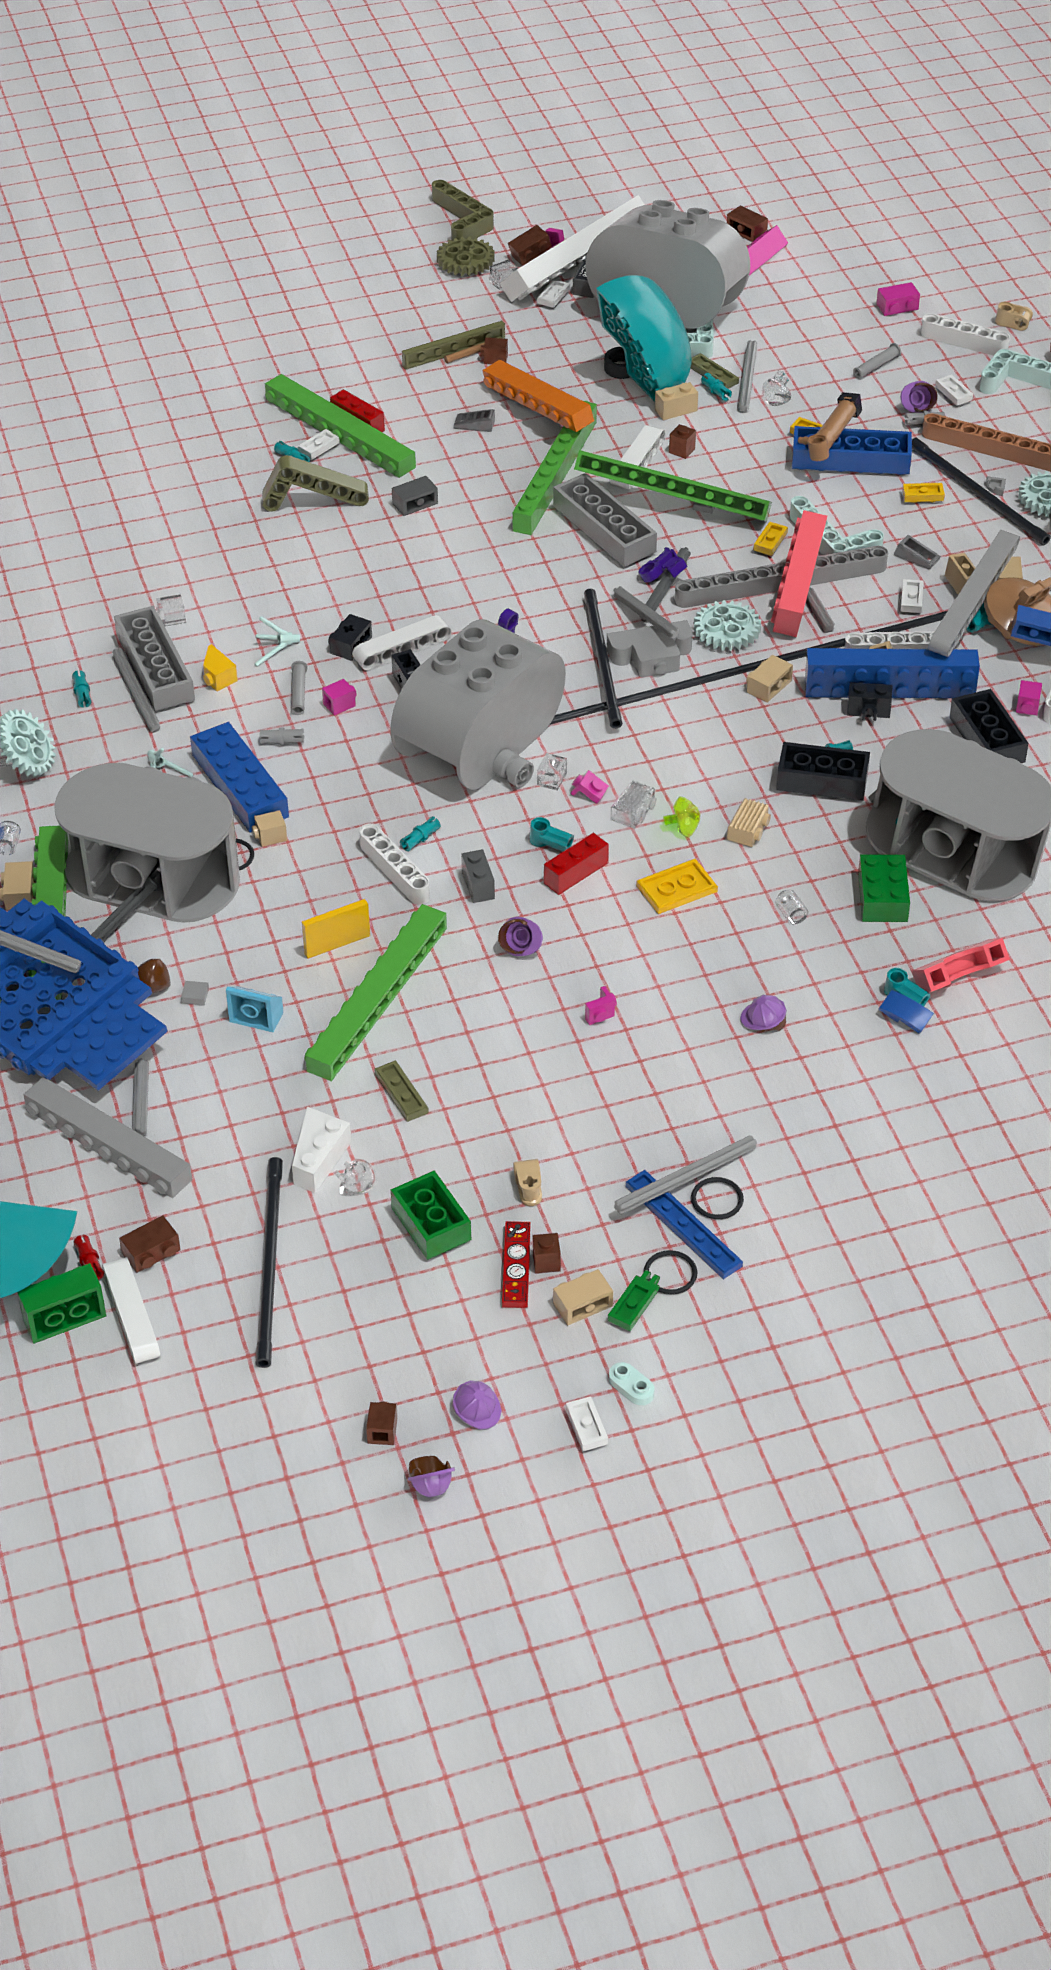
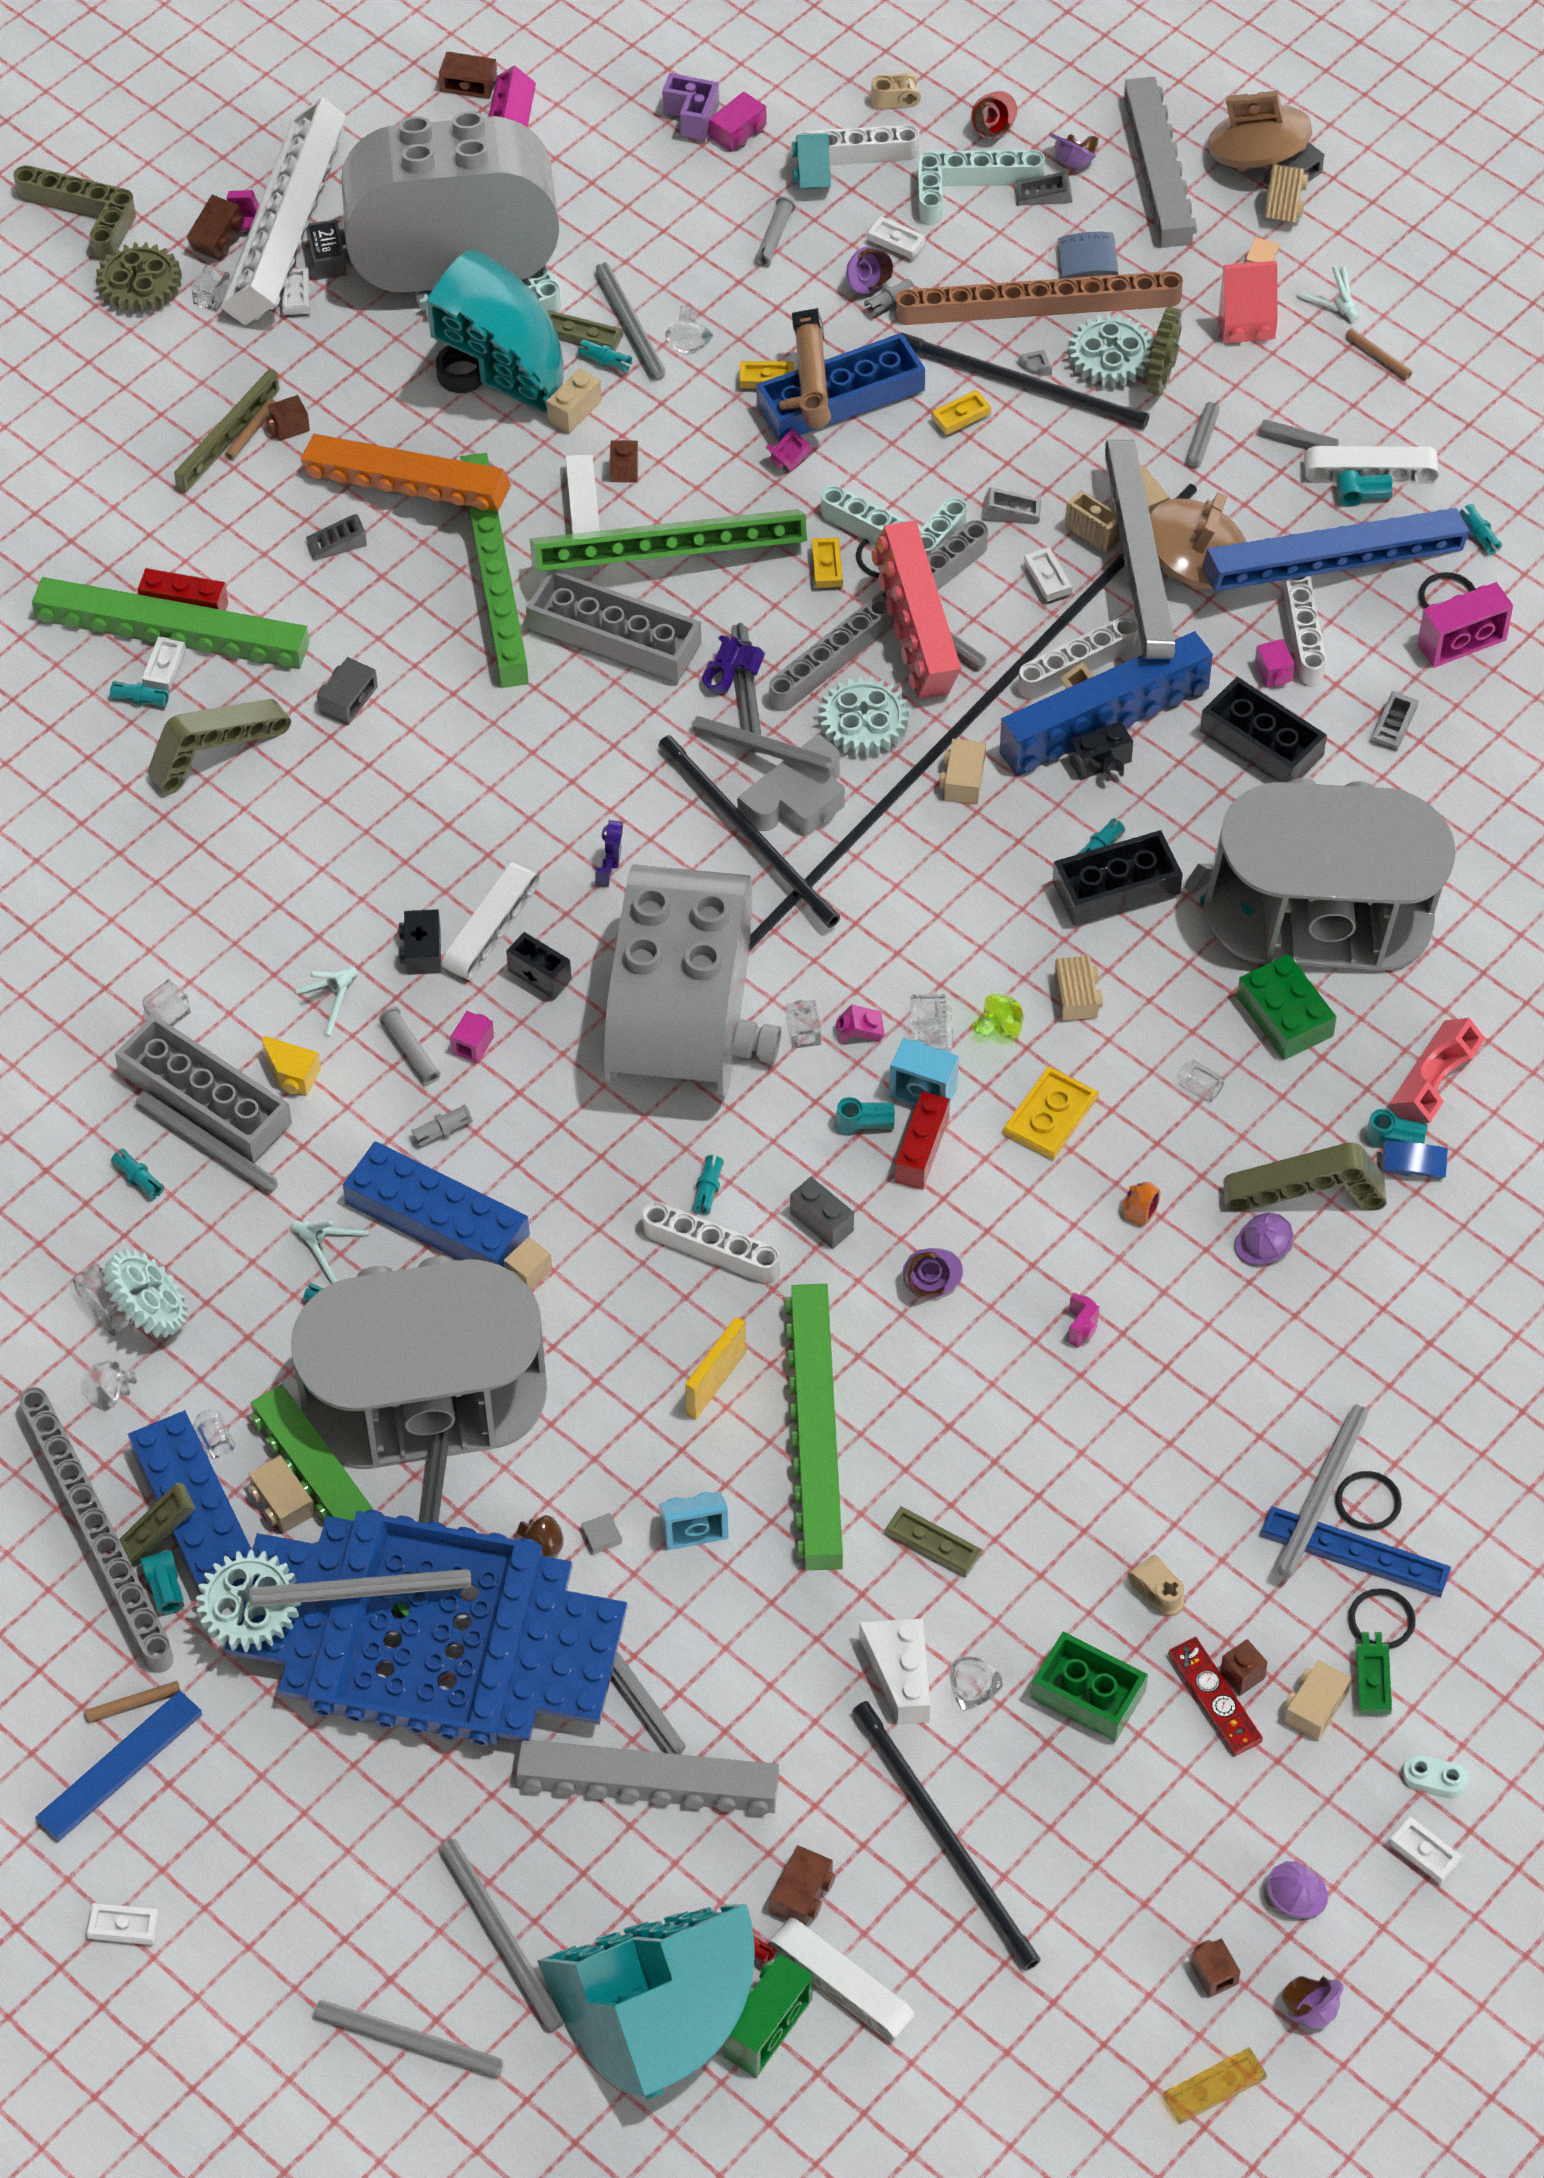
camera: 30 degrees left, 10 degrees up
(326, 1496) = (1214, 2085): none -> clear yellow tile
(606, 821) = (922, 1069): none -> medium azure brick
(695, 958) = (1141, 1203): none -> orange rock
(792, 474) = (789, 450): none -> dark pink bracket
(820, 980) = (1307, 1174): none -> olive beam
(873, 275) = (693, 101): none -> medium lavender brick
(927, 330) = (812, 161): none -> teal brick

